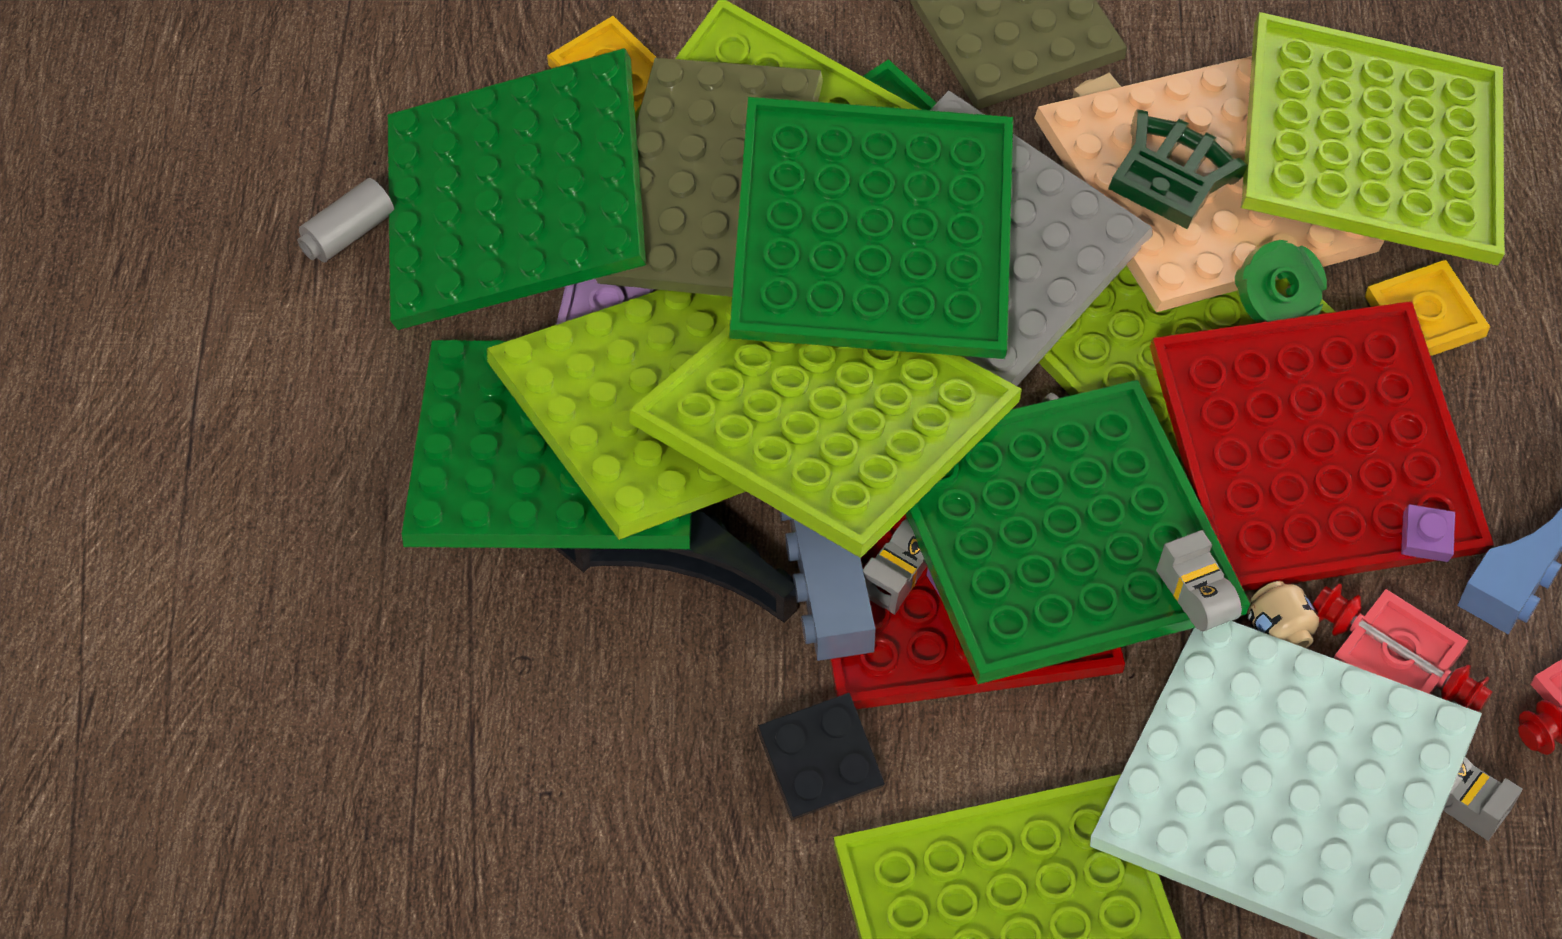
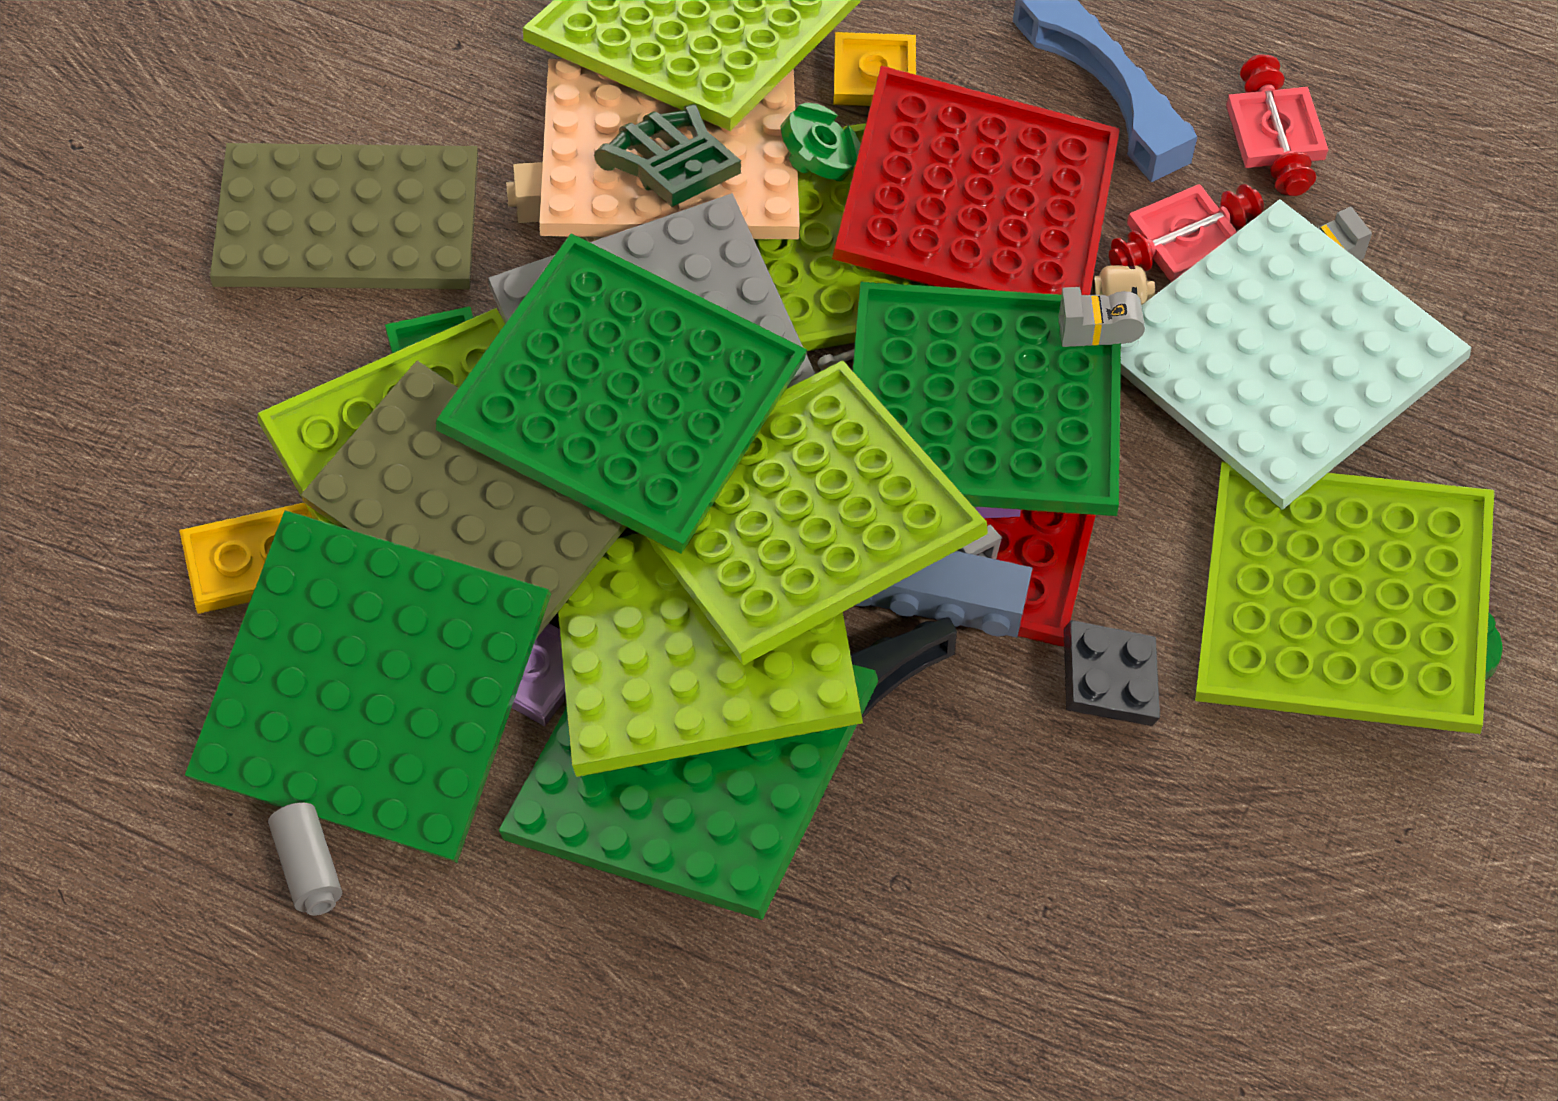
camera: 70 degrees left, 0 degrees up
(1428, 533) = (1097, 160): medium lavender plate -> none

